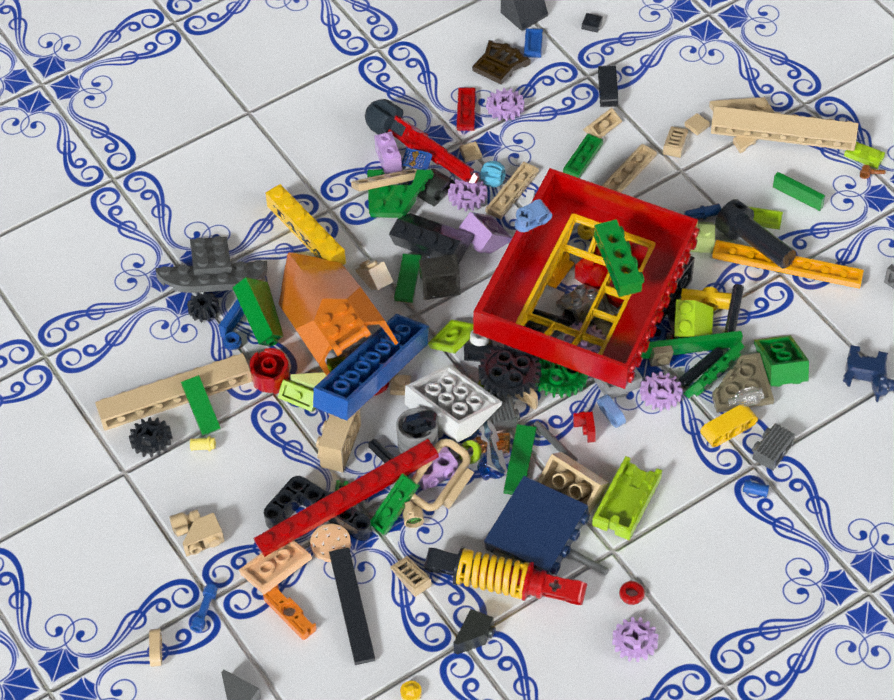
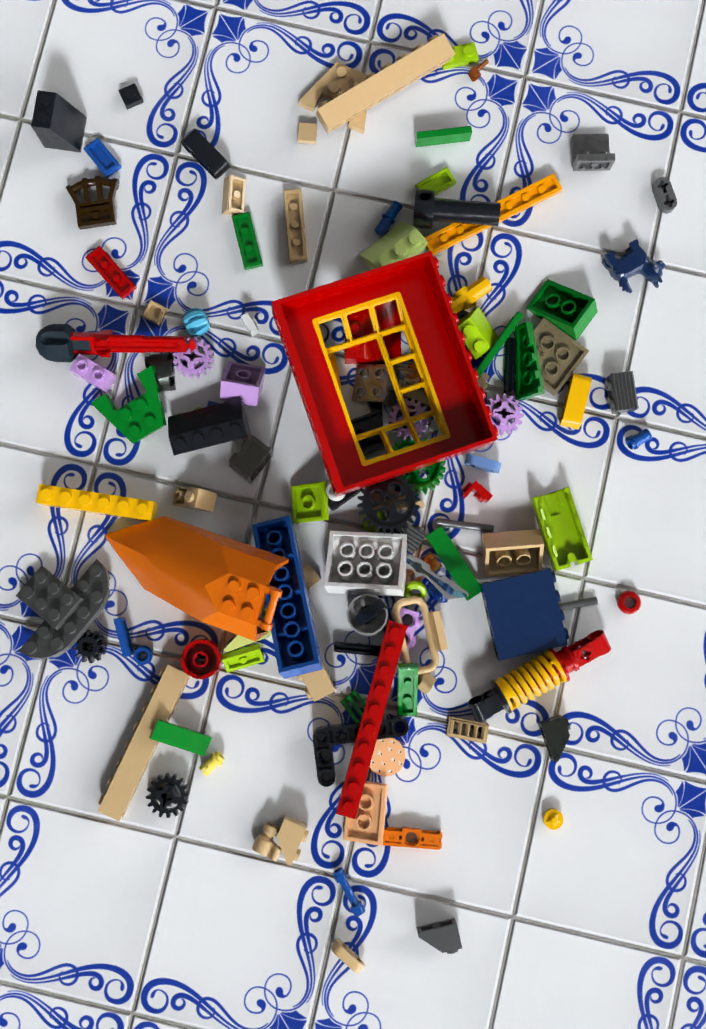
camera: 50 degrees left, 30 degrees up
(259, 310) = (141, 614): green slope -> none
(352, 606) = (451, 793): black tile -> none
(384, 180) = (119, 402): tan tile -> none
(407, 278) = (220, 476): green tile -> none
(416, 159) = (124, 362): blue tile -> none
(505, 104) = (133, 239): lavender gear -> none
(512, 190) = (222, 322): tan tile -> none
(532, 216) = (305, 362): medium blue piece -> none
(621, 270) = (411, 356): green brick -> none
(632, 648) = (660, 645): lavender gear -> none
(674, 150) = (312, 176): tan slope -> none
(734, 308) = (496, 296): black axle -> none
(747, 397) = (573, 368): clear plant -> none

